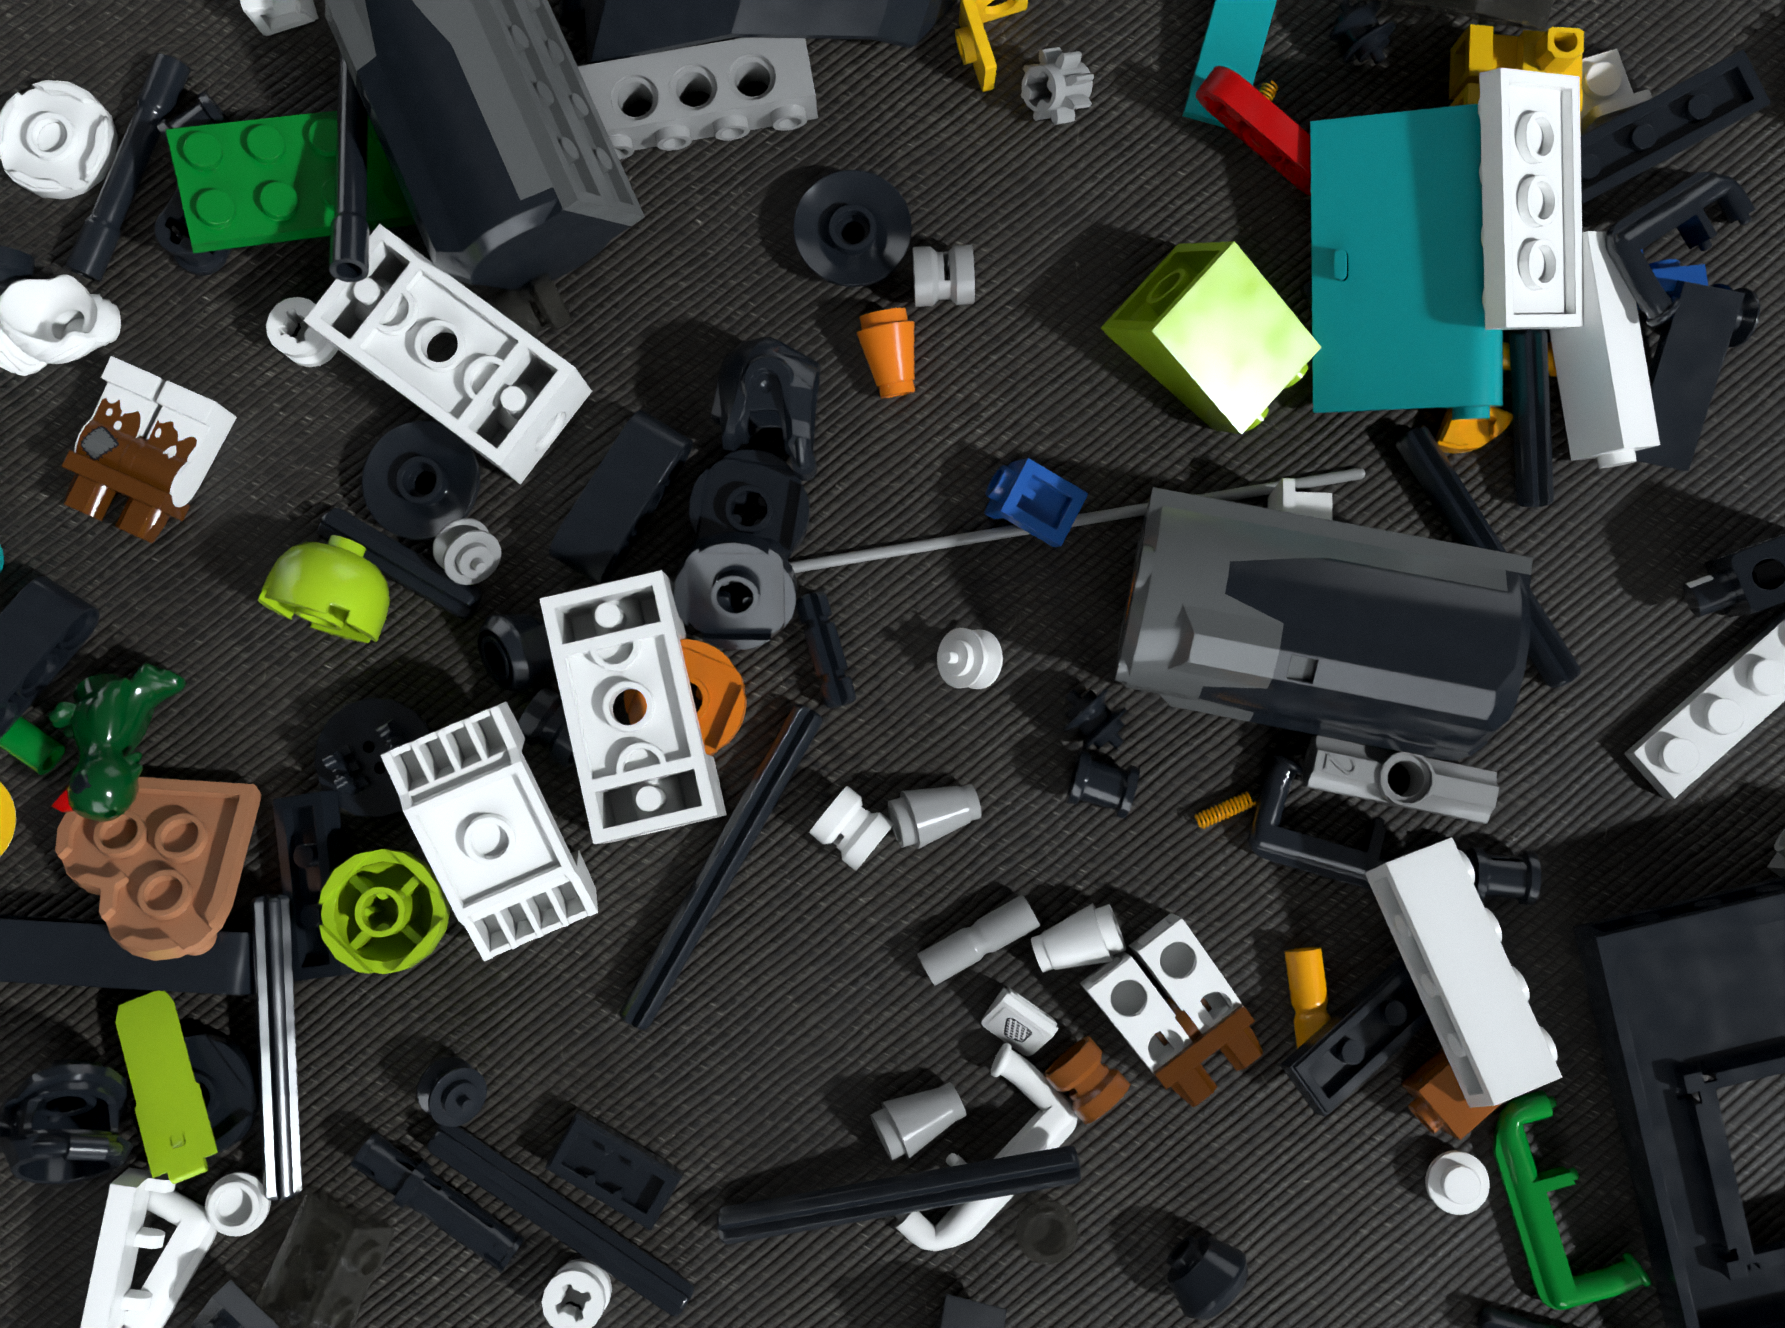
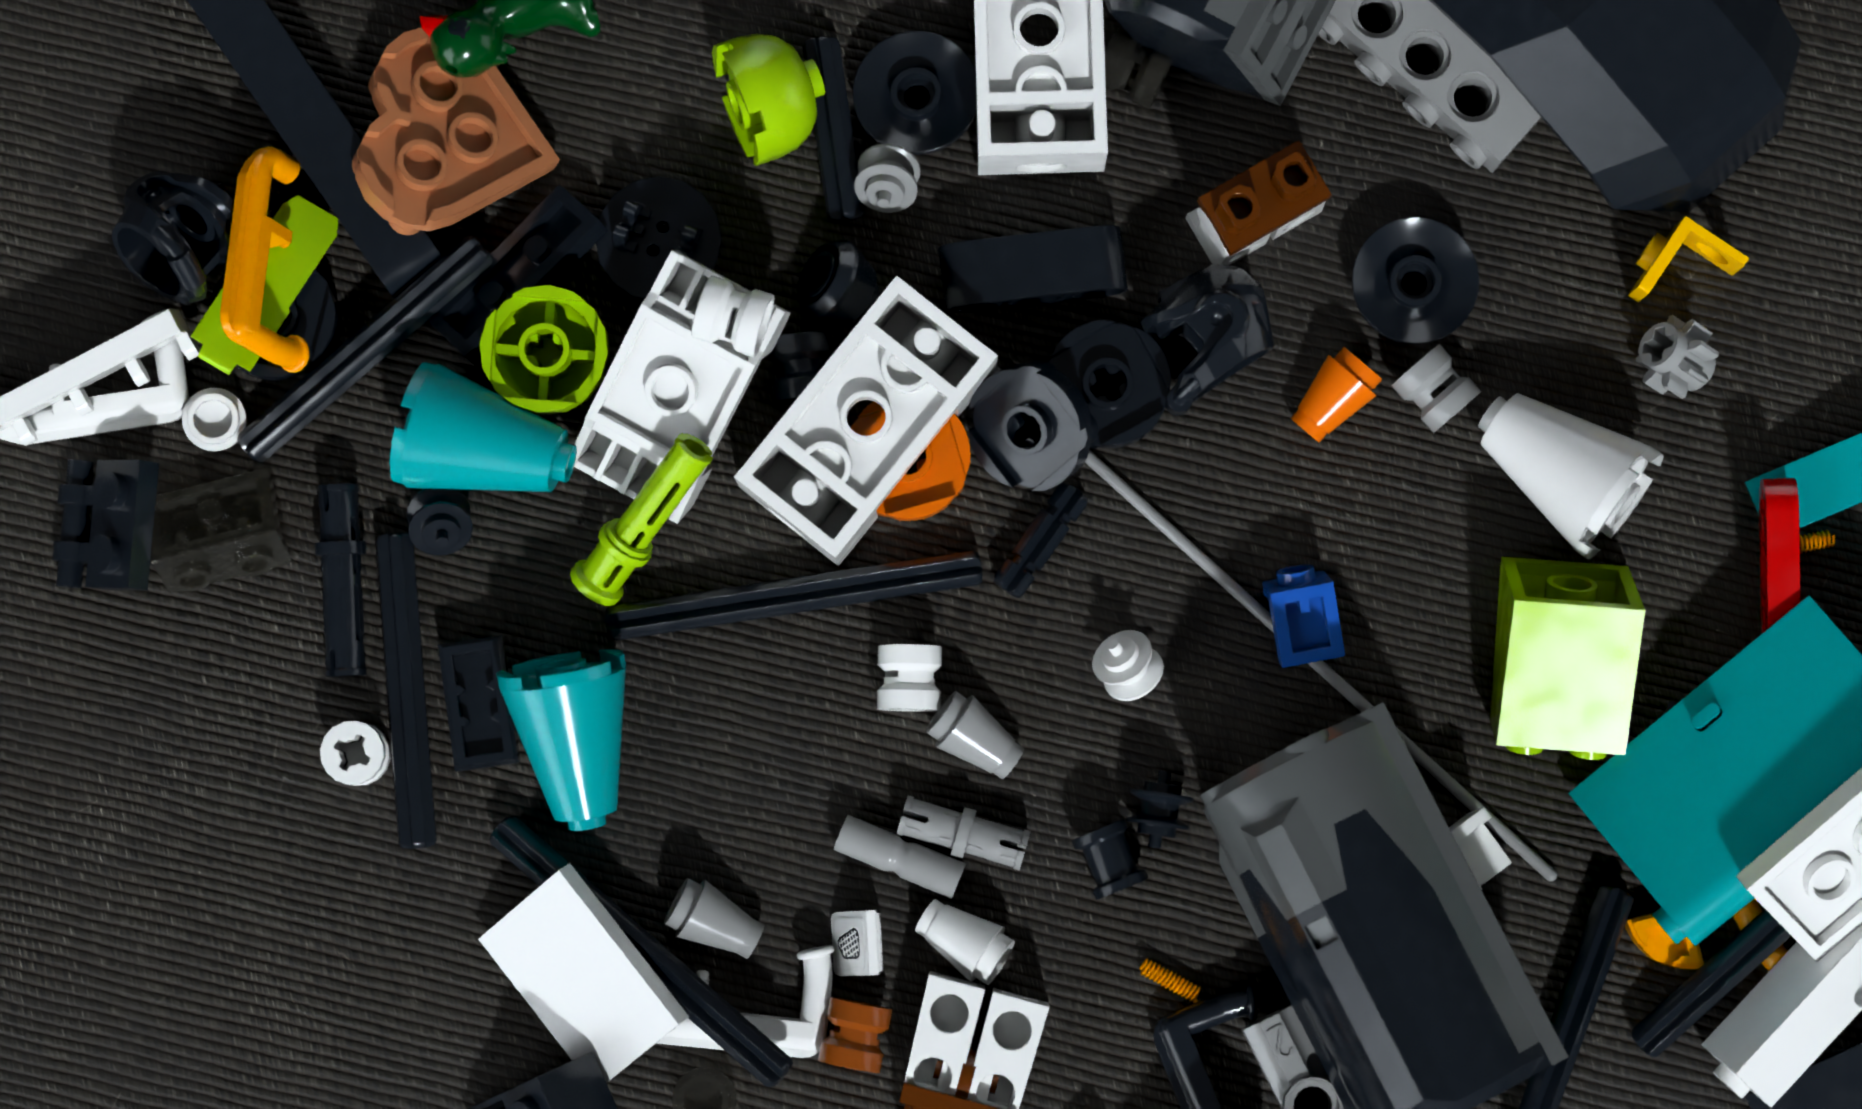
camera: 55 degrees right, 0 degrees up
(122, 1089) = (247, 260): none -> light orange piece
(405, 1021) = (474, 439): none -> teal cone
(466, 748) = (732, 316): none -> white wheel
(580, 960) = (627, 540): none -> lime pin
(689, 1118) = (571, 730): none -> teal cone
(705, 291) = (1258, 205): none -> reddish brown hips
(882, 1254) = (583, 974): none -> white tile
(998, 878) = (963, 832): none -> light grey pin
(1075, 224) = (1568, 467): none -> white cone

